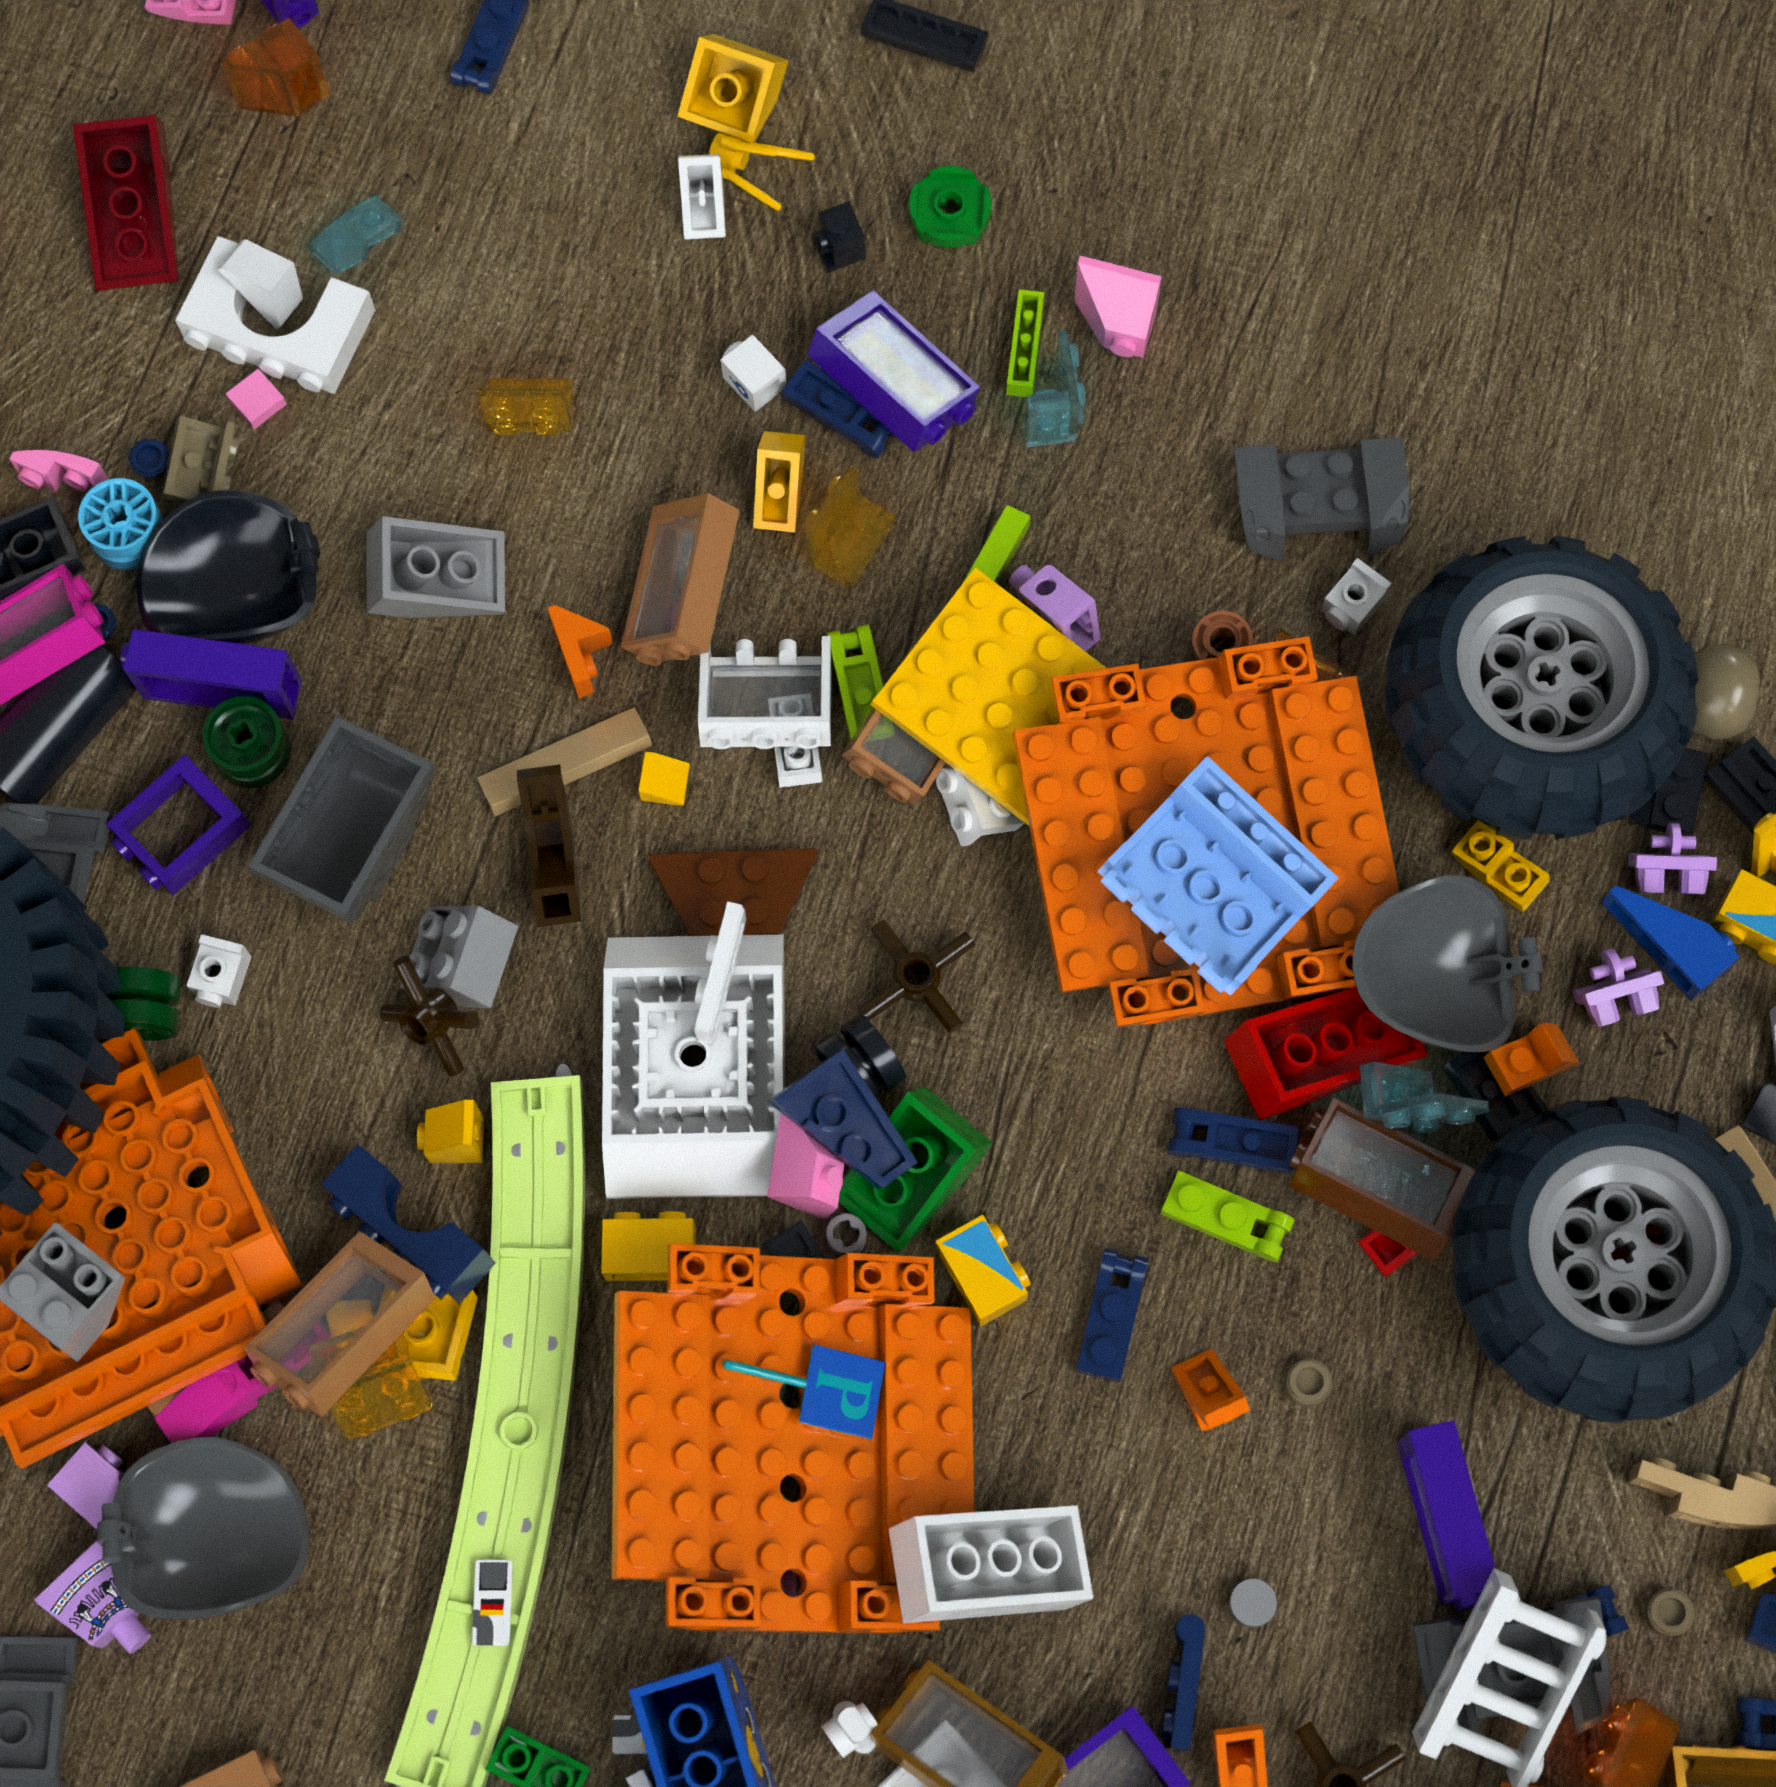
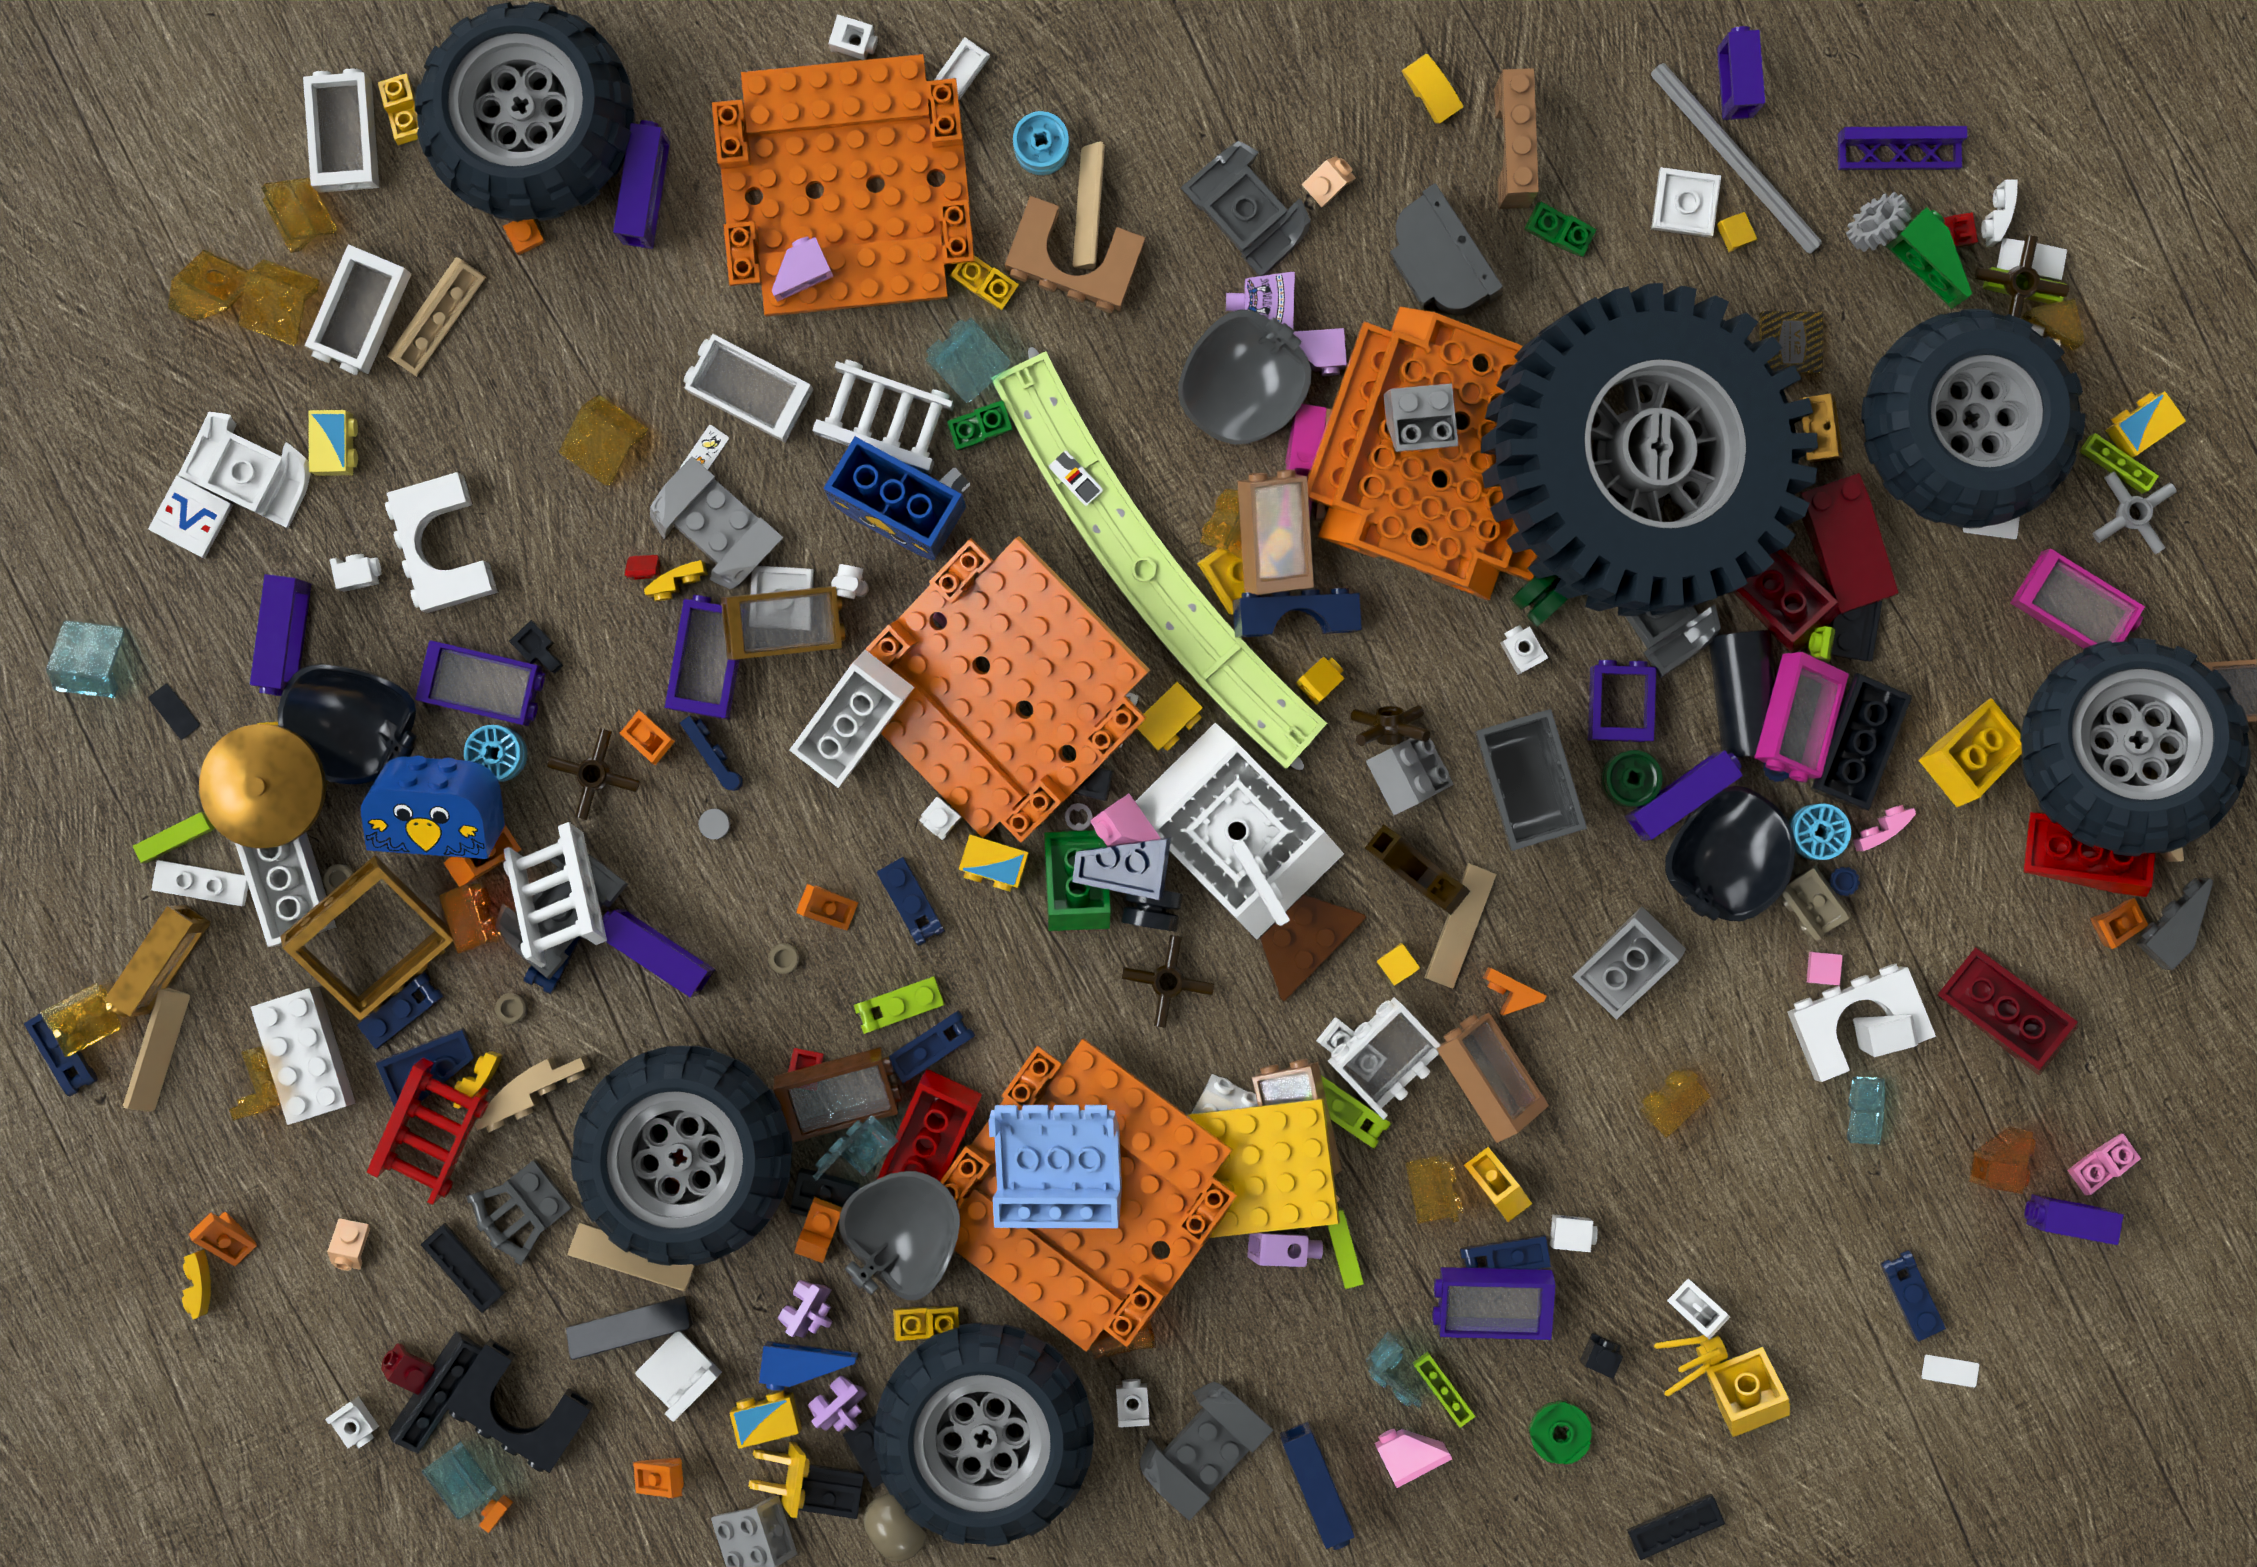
camera: 135 degrees right, 15 degrees up
(838, 1390) = (1003, 731): blue piece -> none
(996, 1371) = (940, 818): none -> white brick
(1219, 625) = (1188, 1322): nougat wheel -> none
(1239, 357) = (1317, 1486): none -> dark blue window

